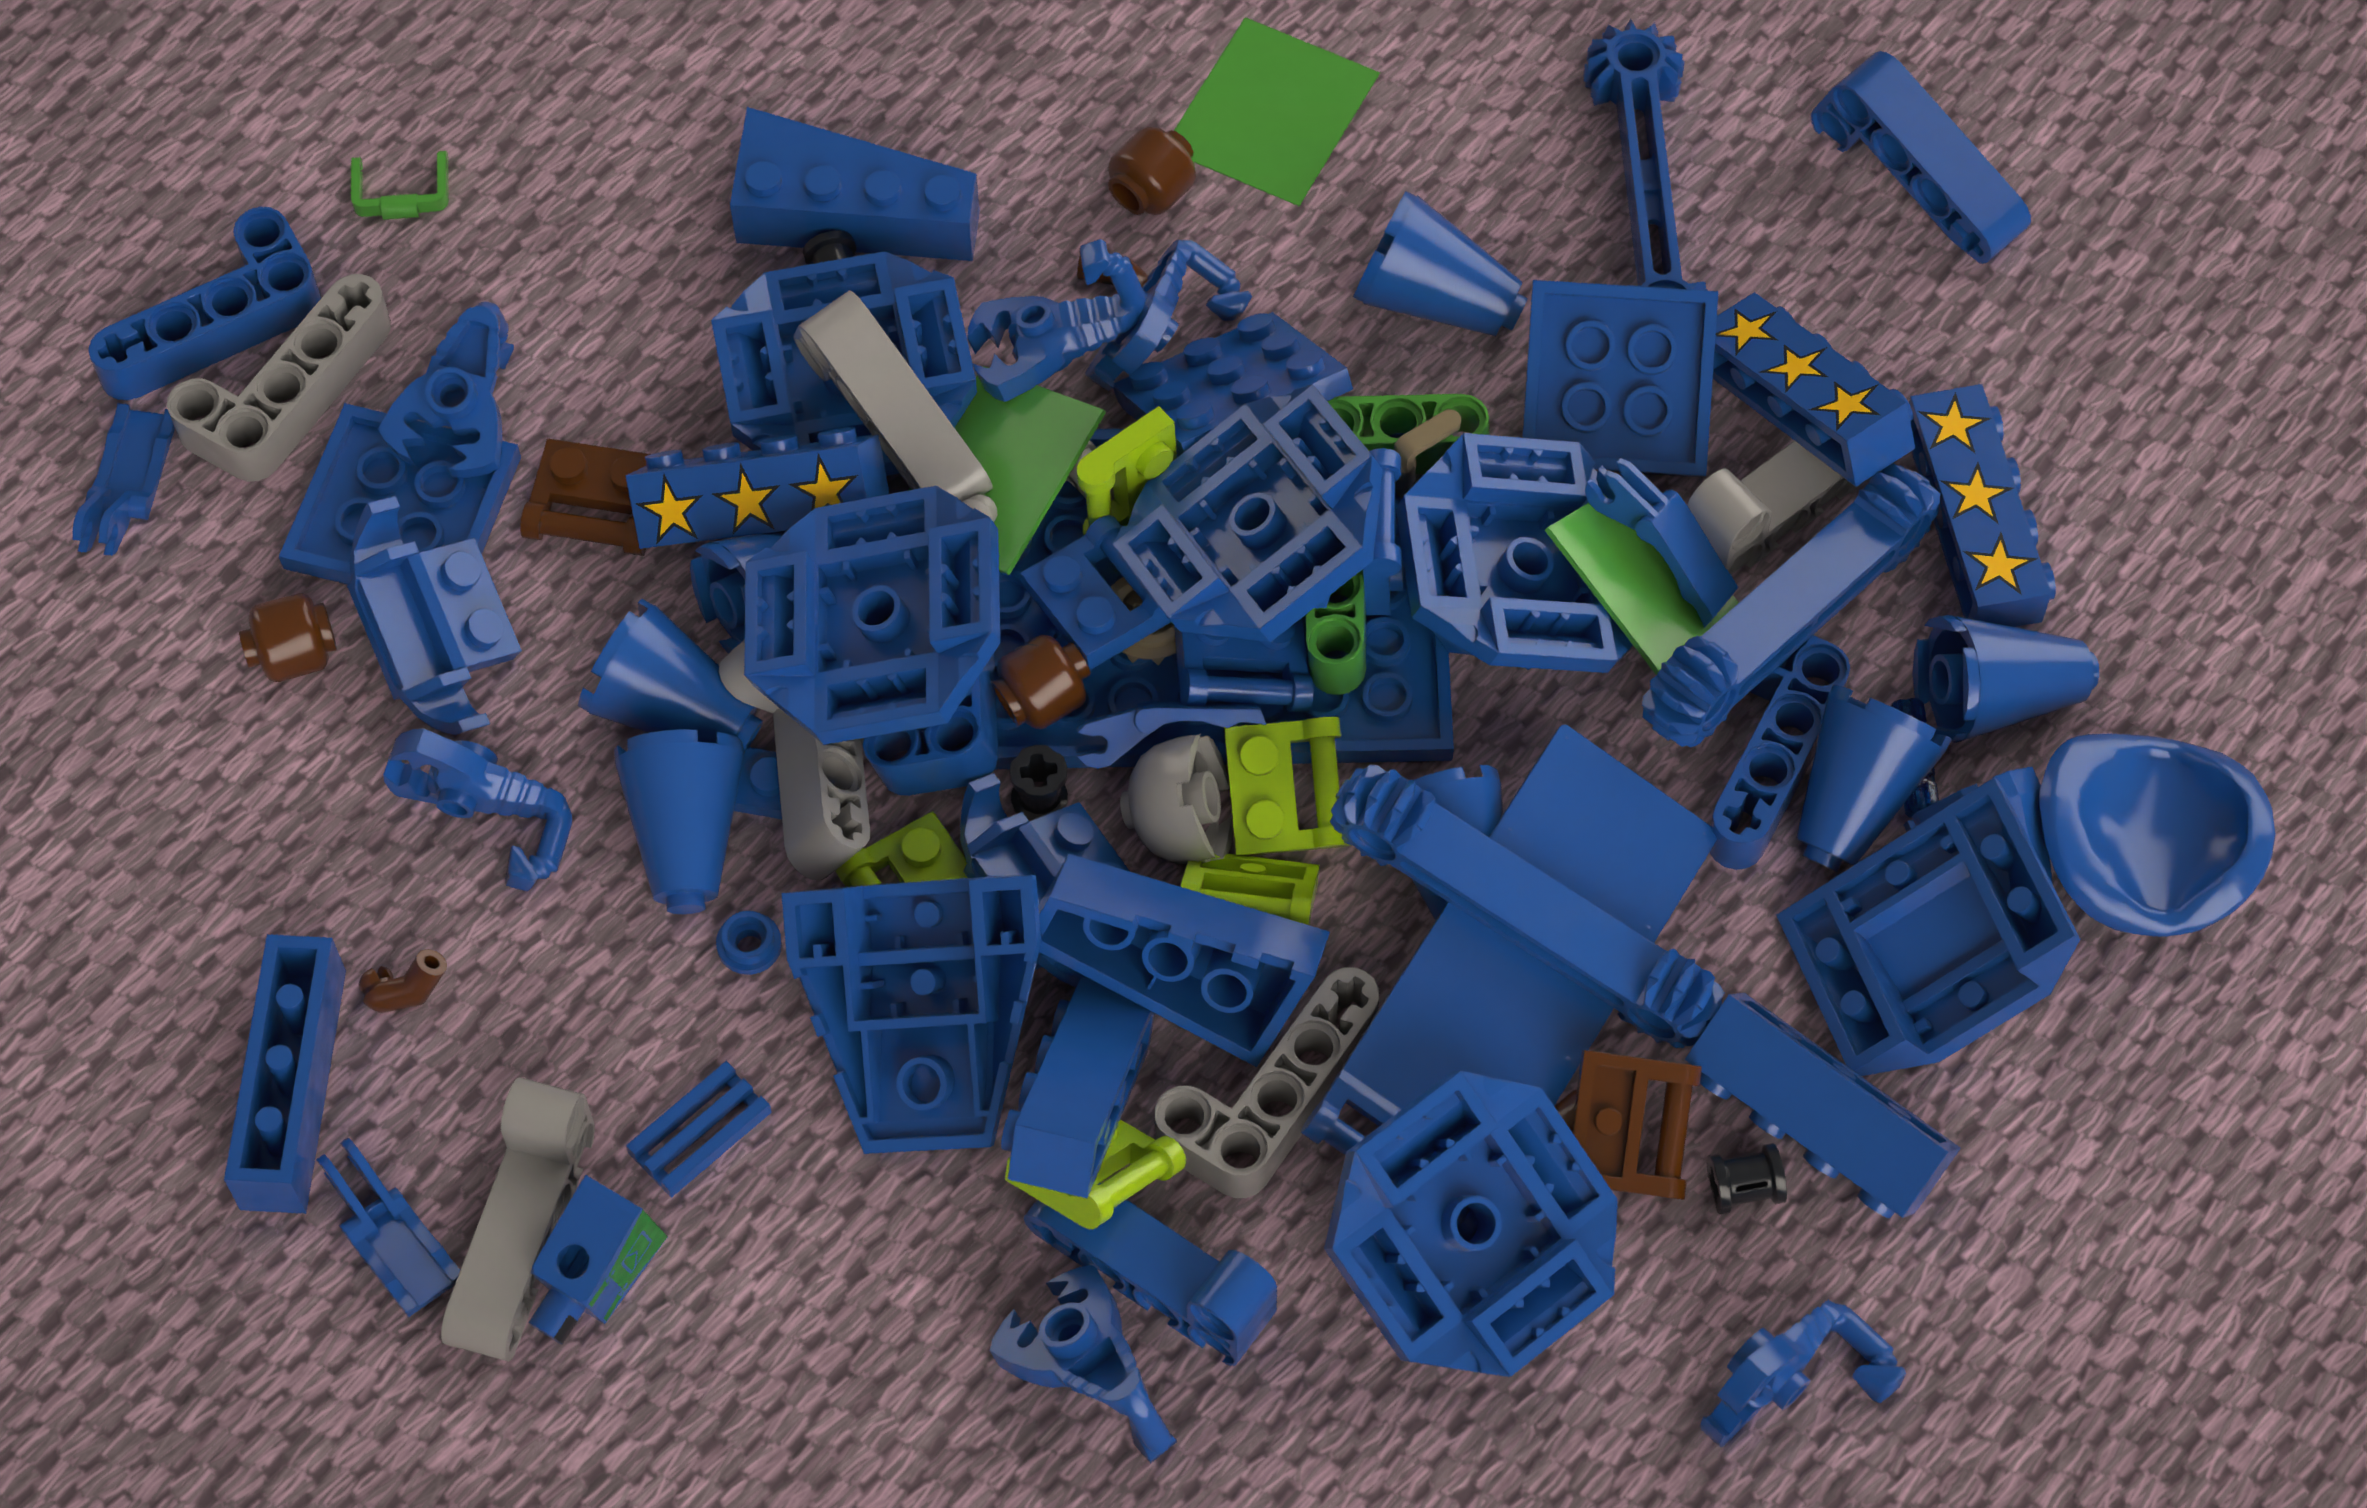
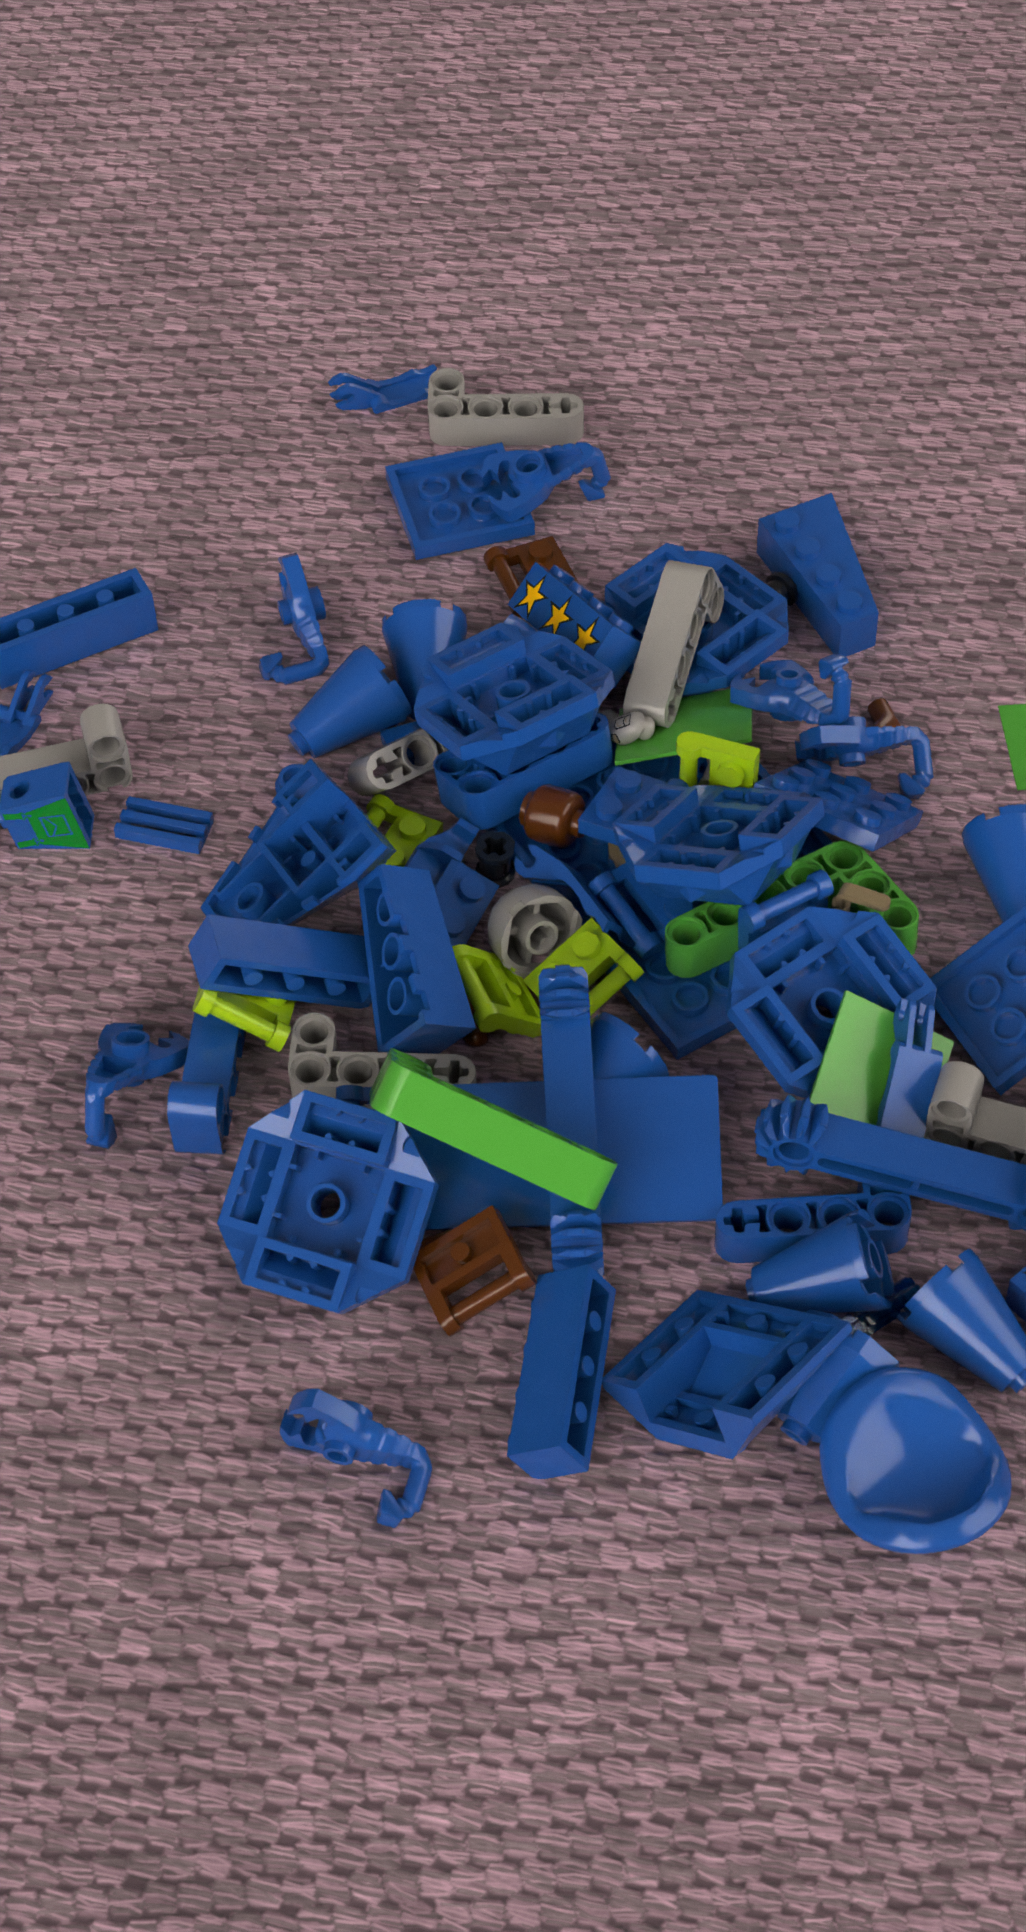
camera: 60 degrees right, 10 degrees down
(142, 349) = (515, 367): blue beam -> none
(288, 637) = (340, 498): reddish brown head -> none
(387, 994) = (162, 655): reddish brown arm -> none
(400, 205) = (656, 407): bright green piece -> none
(427, 617) = (391, 540): blue plate -> none
(1151, 171) = (970, 702): reddish brown head -> none
(1505, 1008) = (484, 1130): none -> bright green beam
(1747, 1178) = (483, 1359): black bush -> none

